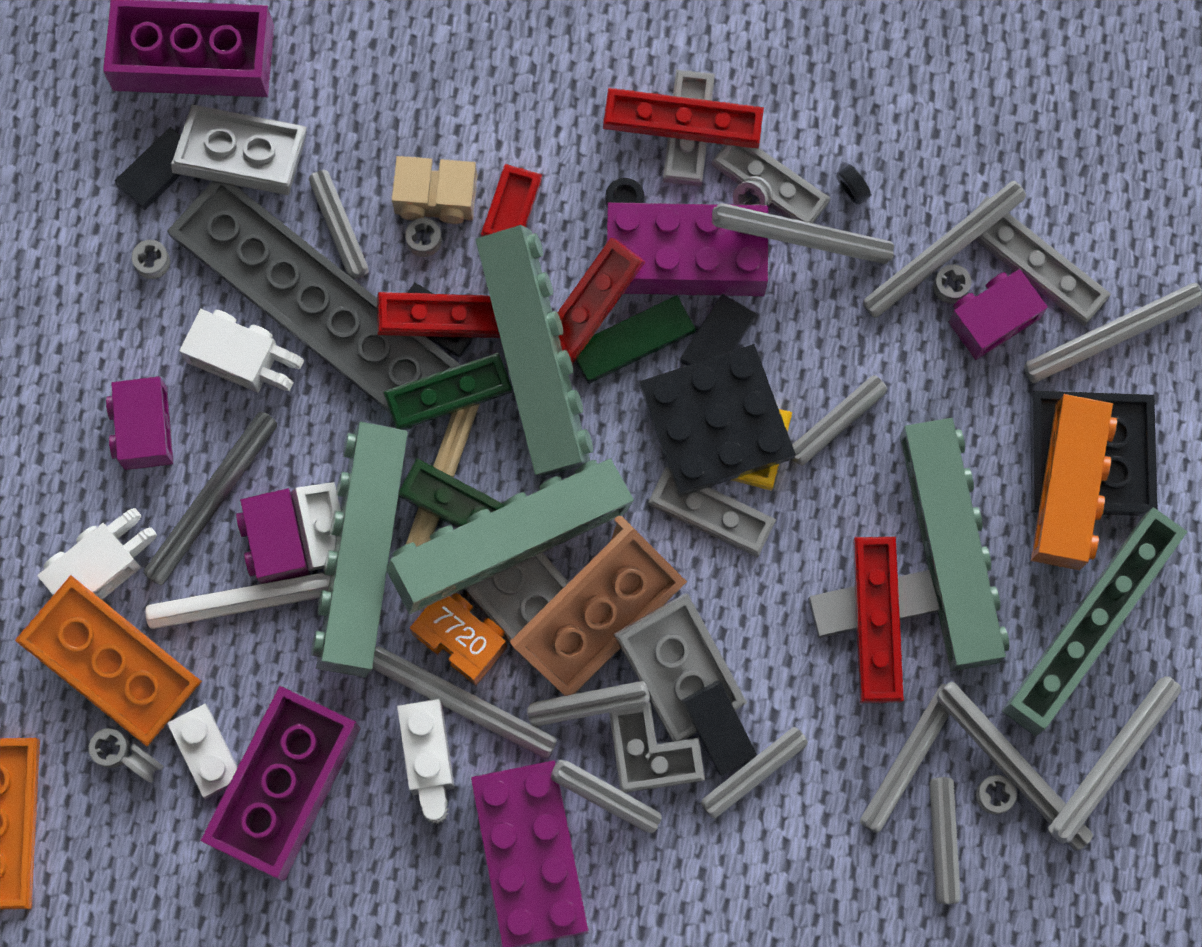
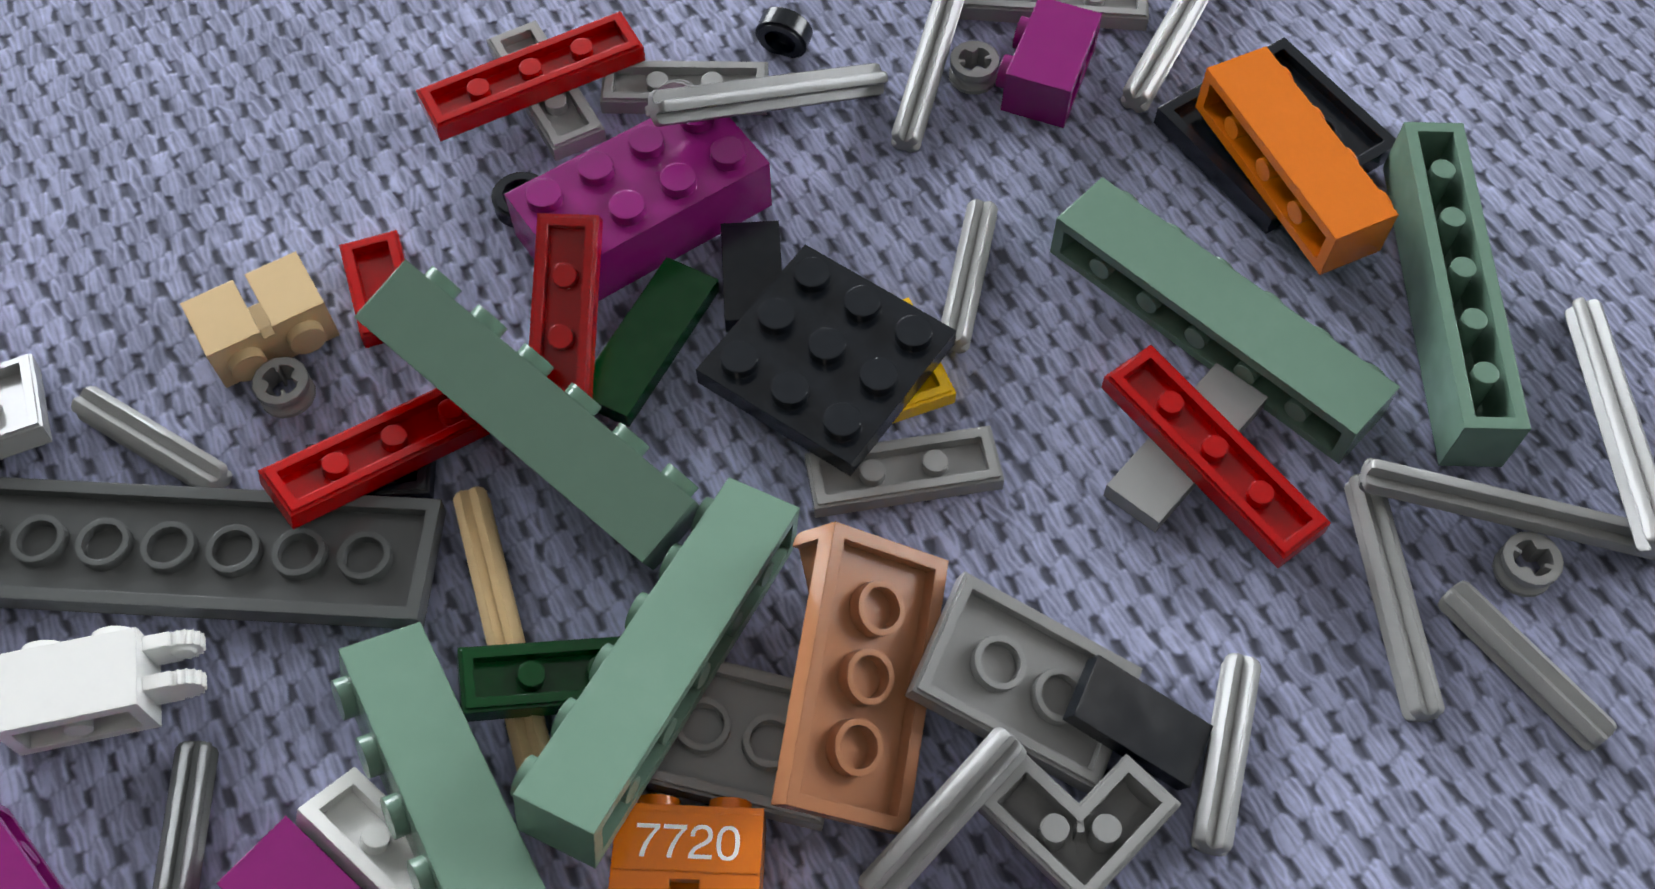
camera: 35 degrees left, 15 degrees down
(447, 391) = (442, 541): dark green tile -> none

